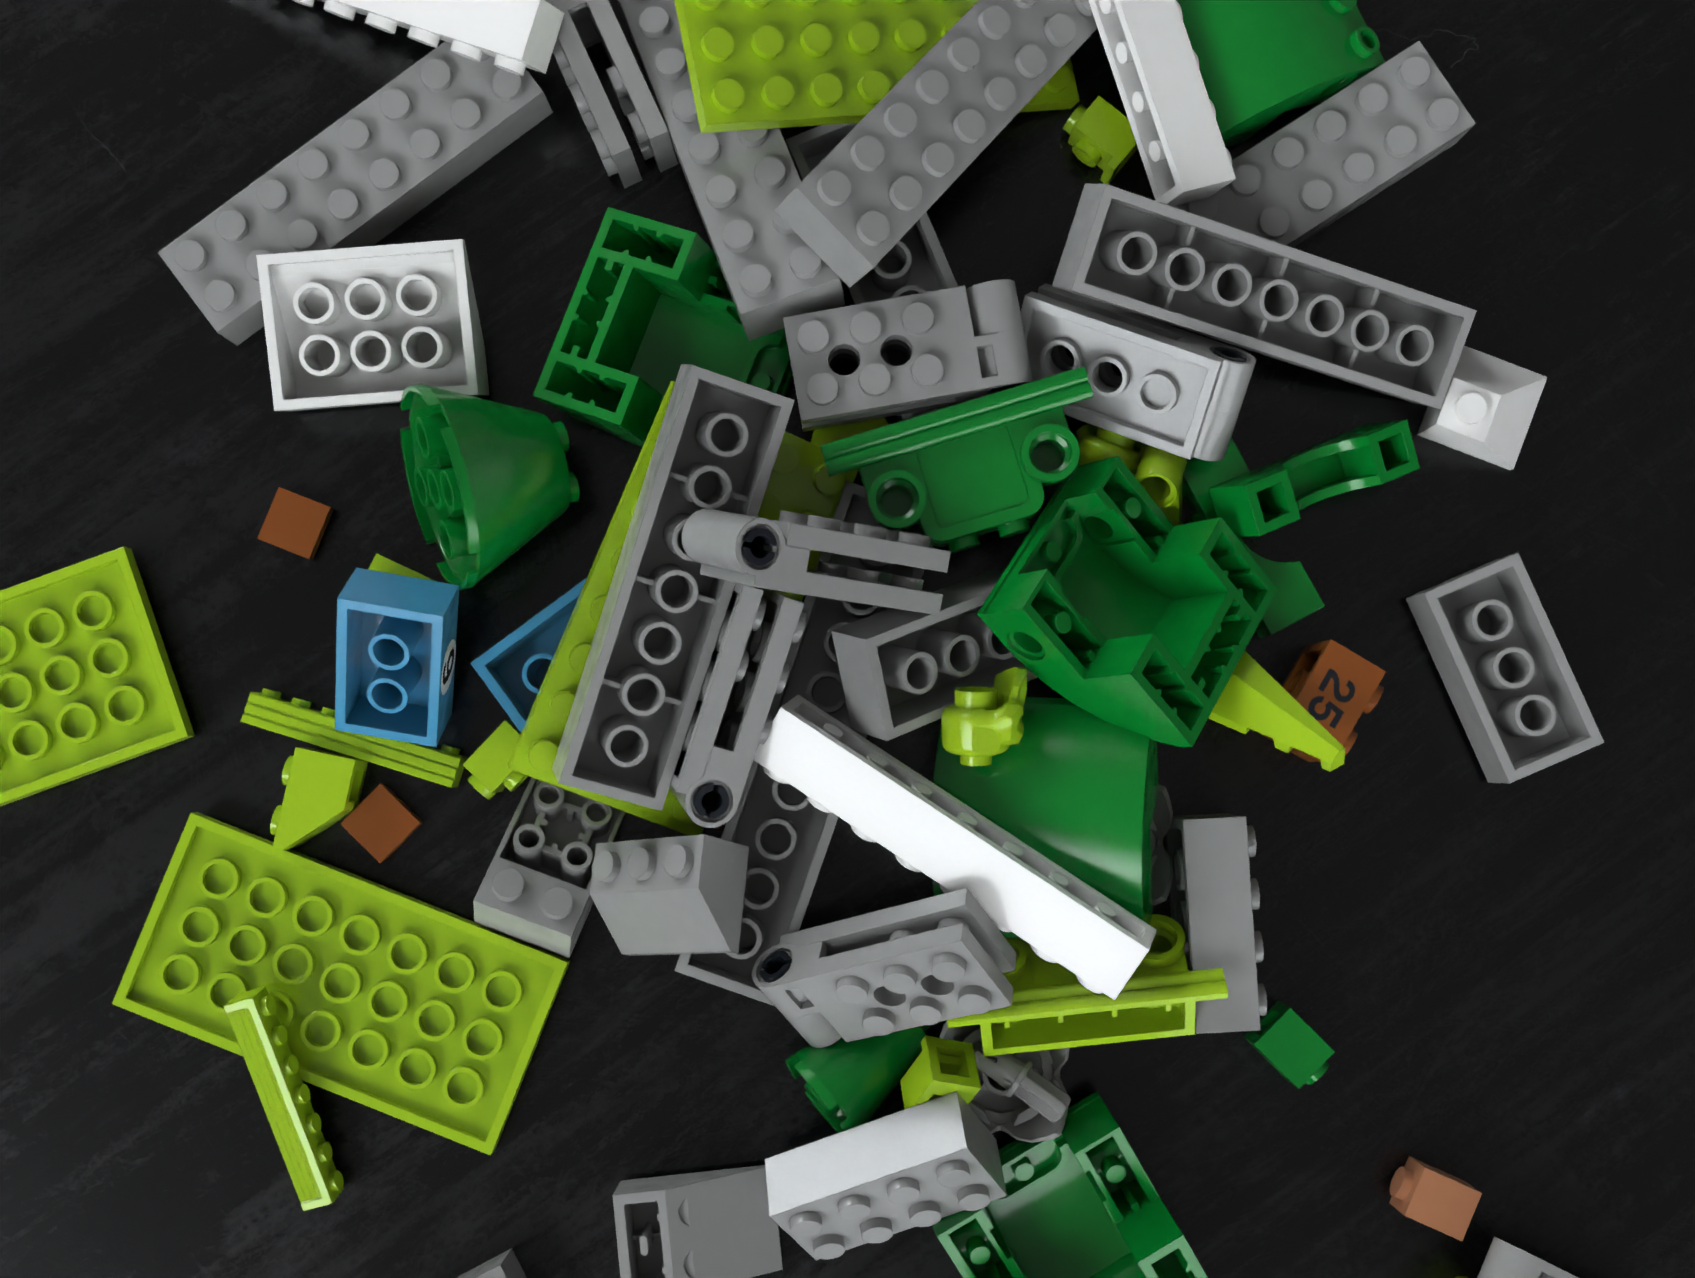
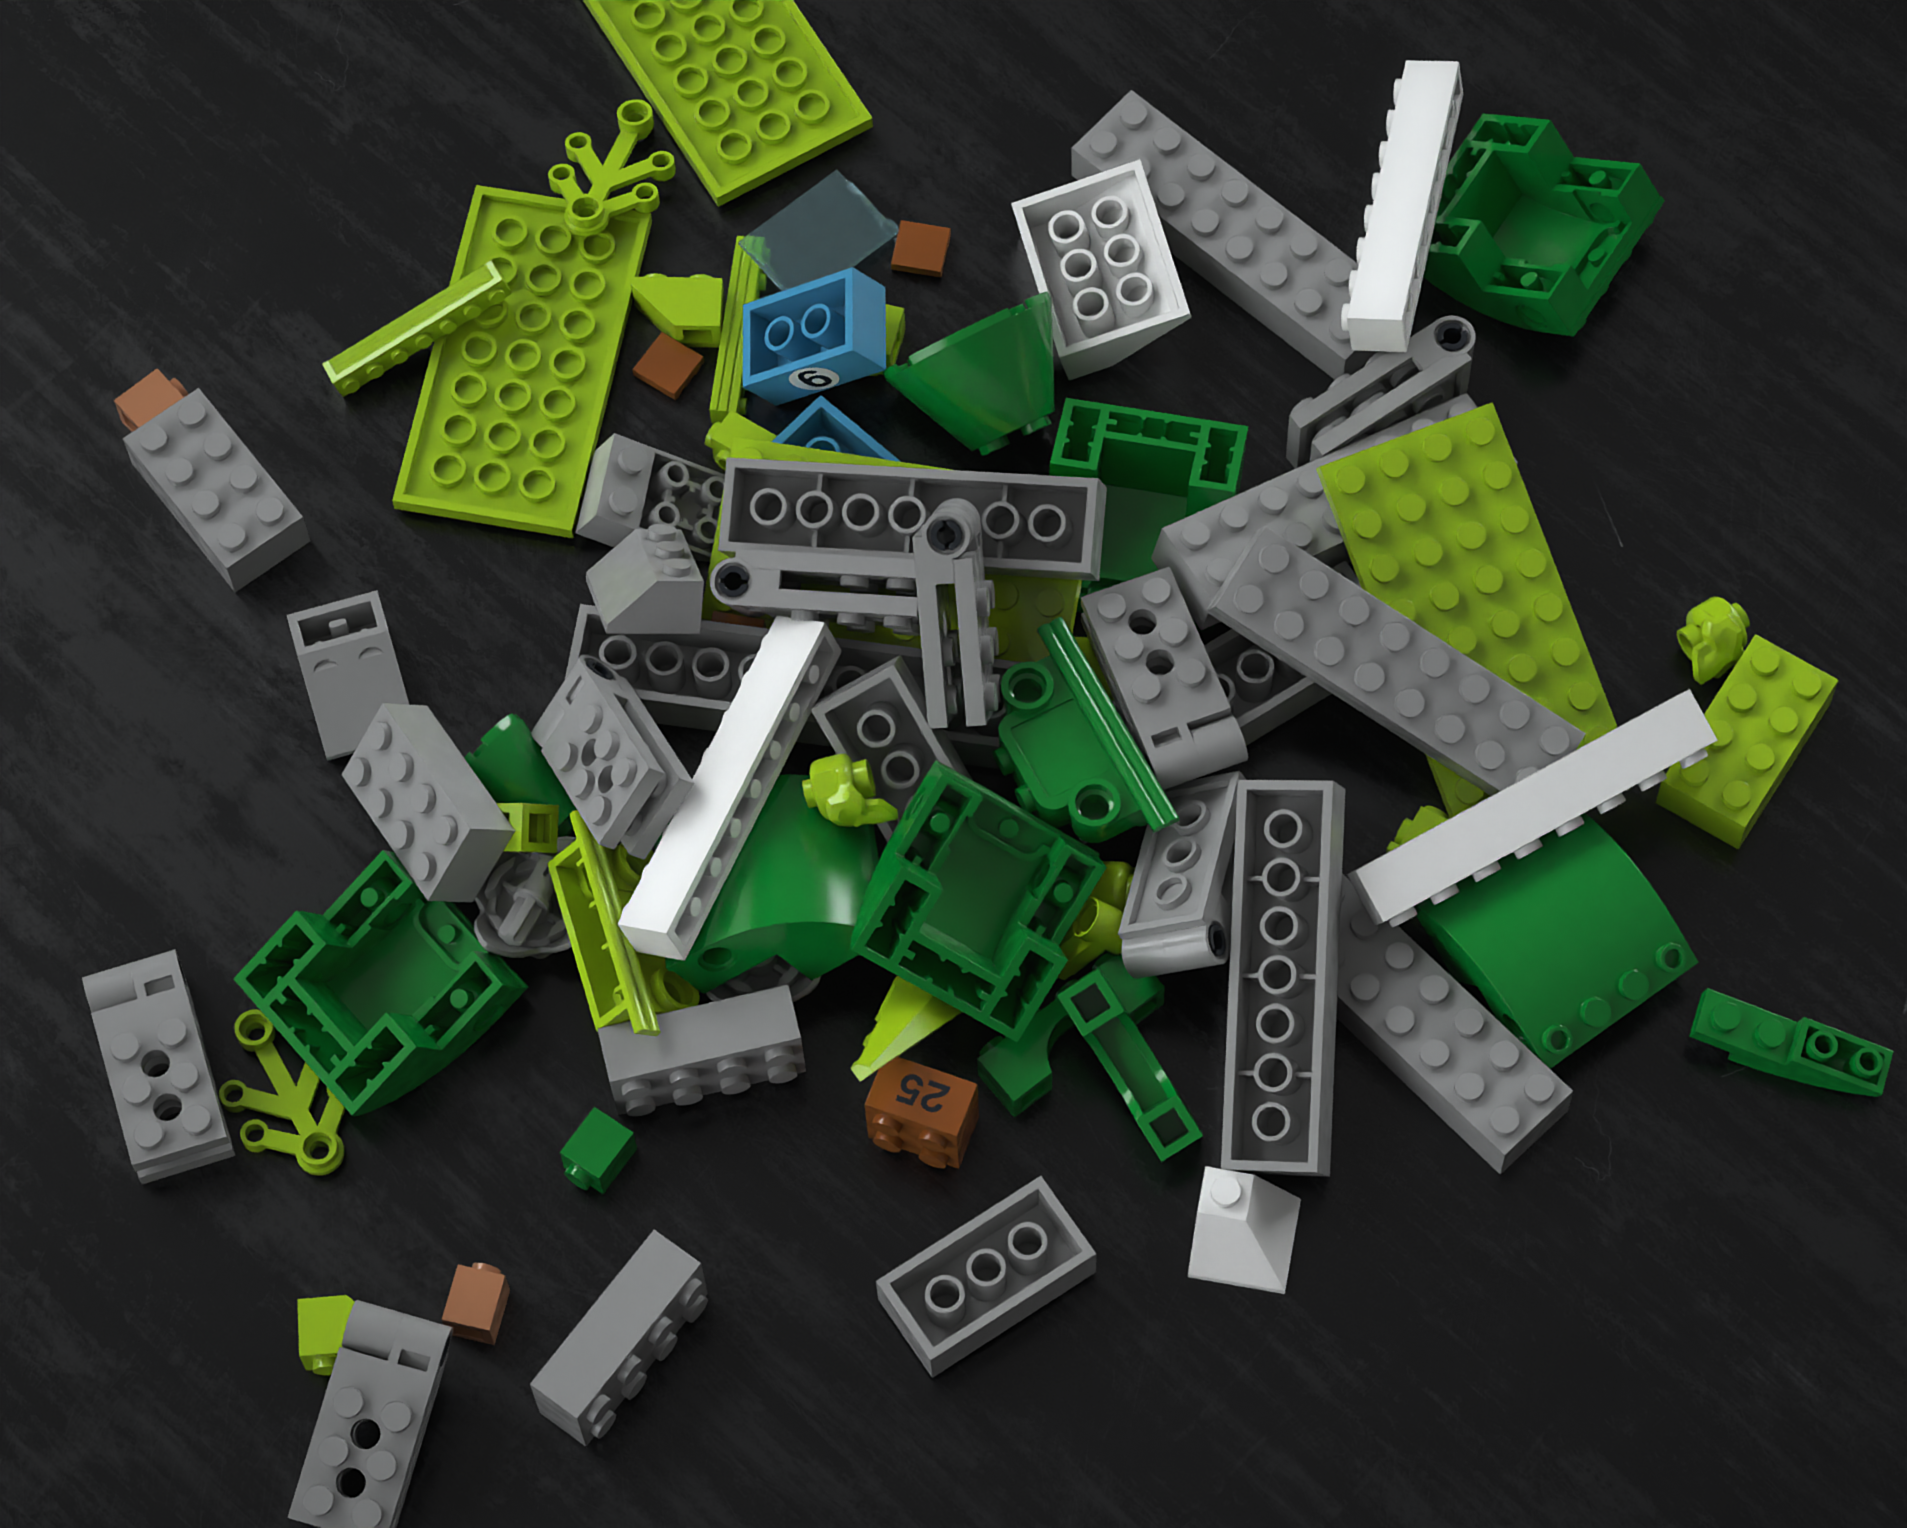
camera: 80 degrees right, 20 degrees down
(134, 850) = (591, 212): none -> lime plant
(261, 632) = (819, 234): none -> clear light blue piece
(1518, 1058) = (621, 1339): none -> light grey brick

